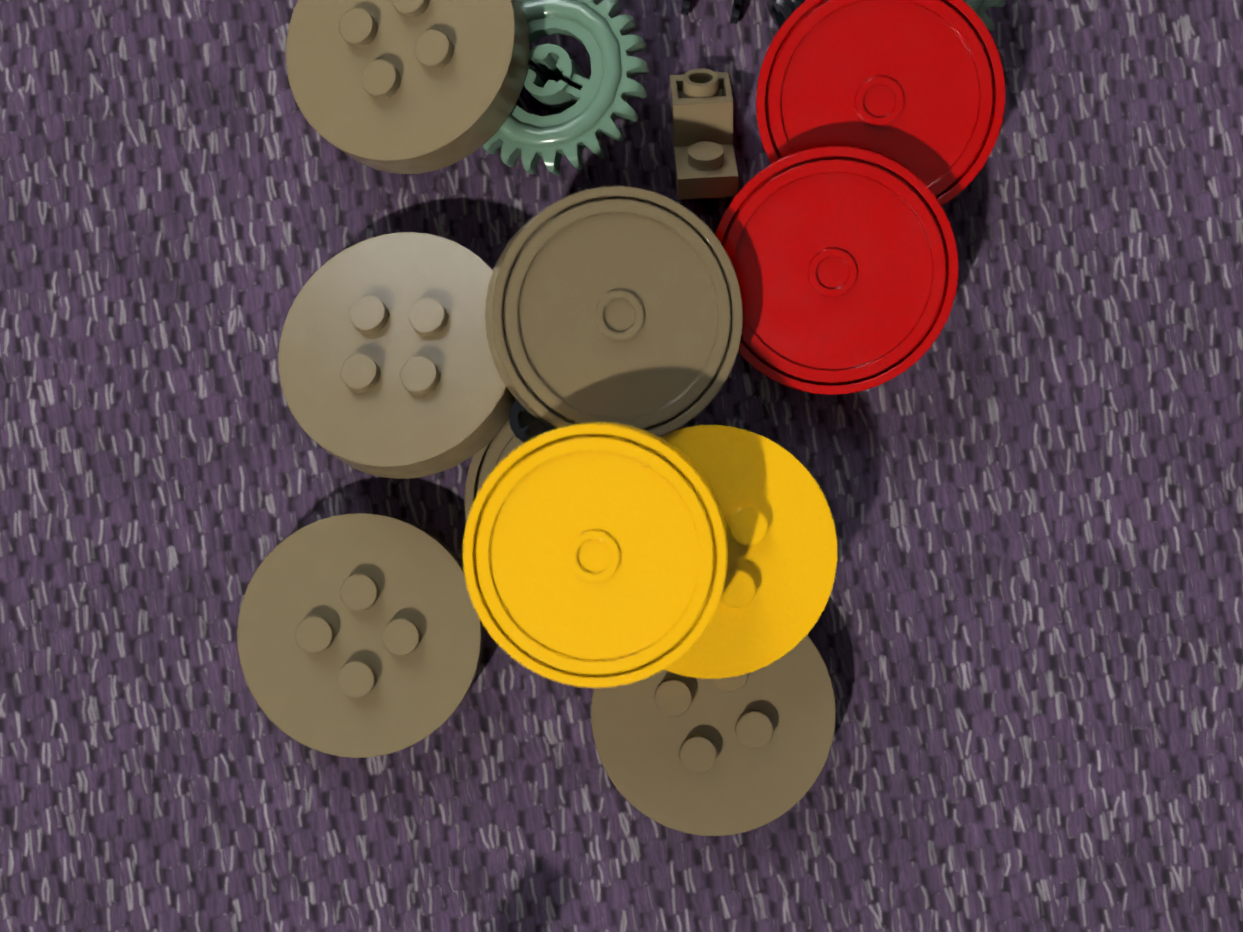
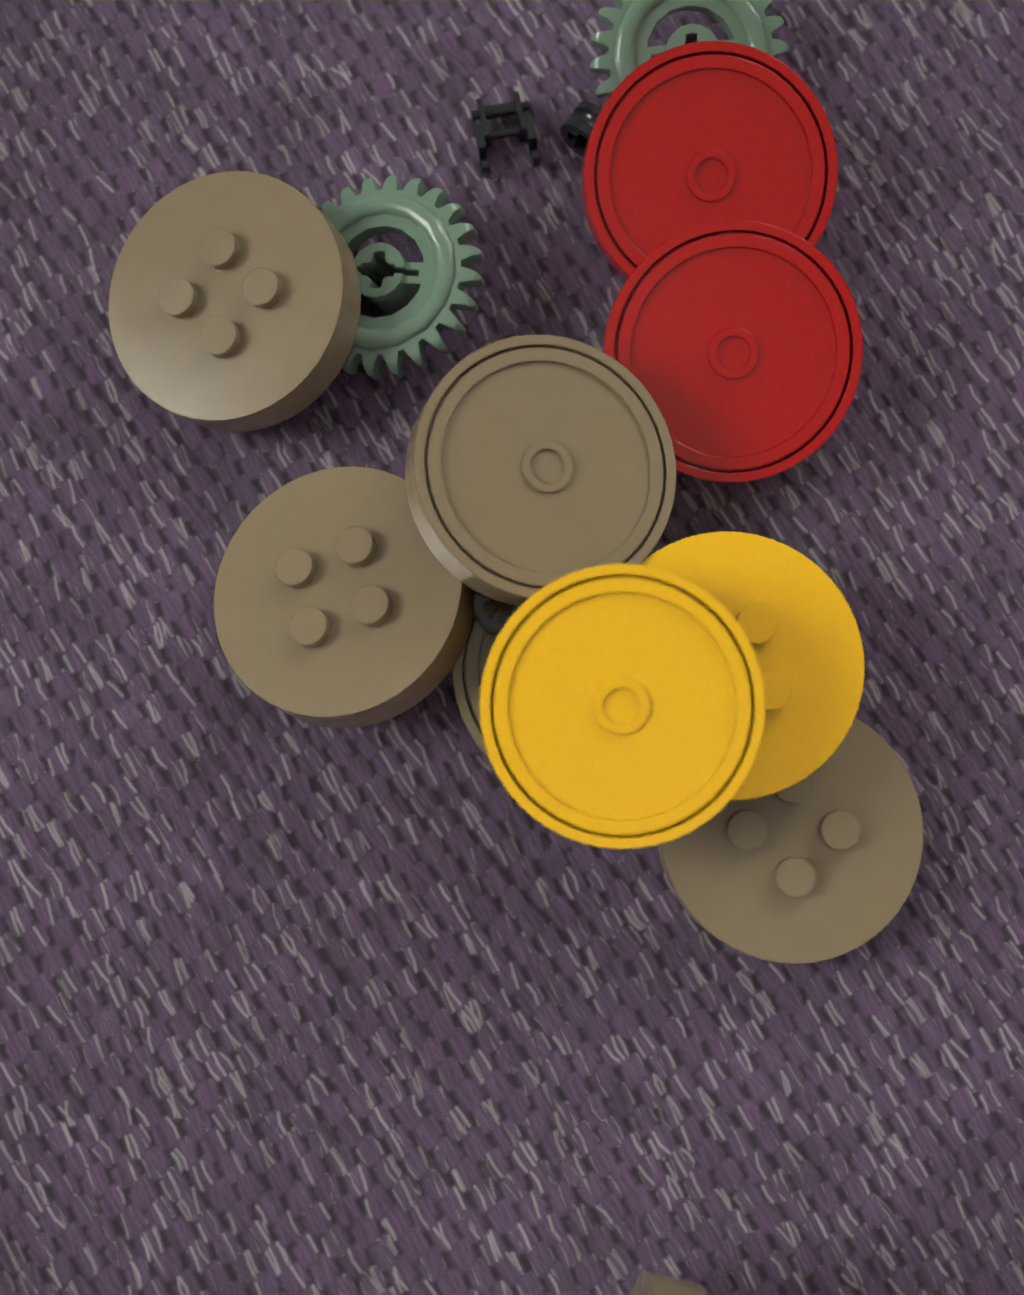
camera: 25 degrees left, 5 degrees down
(359, 635) = (407, 894): dark tan brick -> none
(703, 135) = (550, 278): dark tan slope -> none

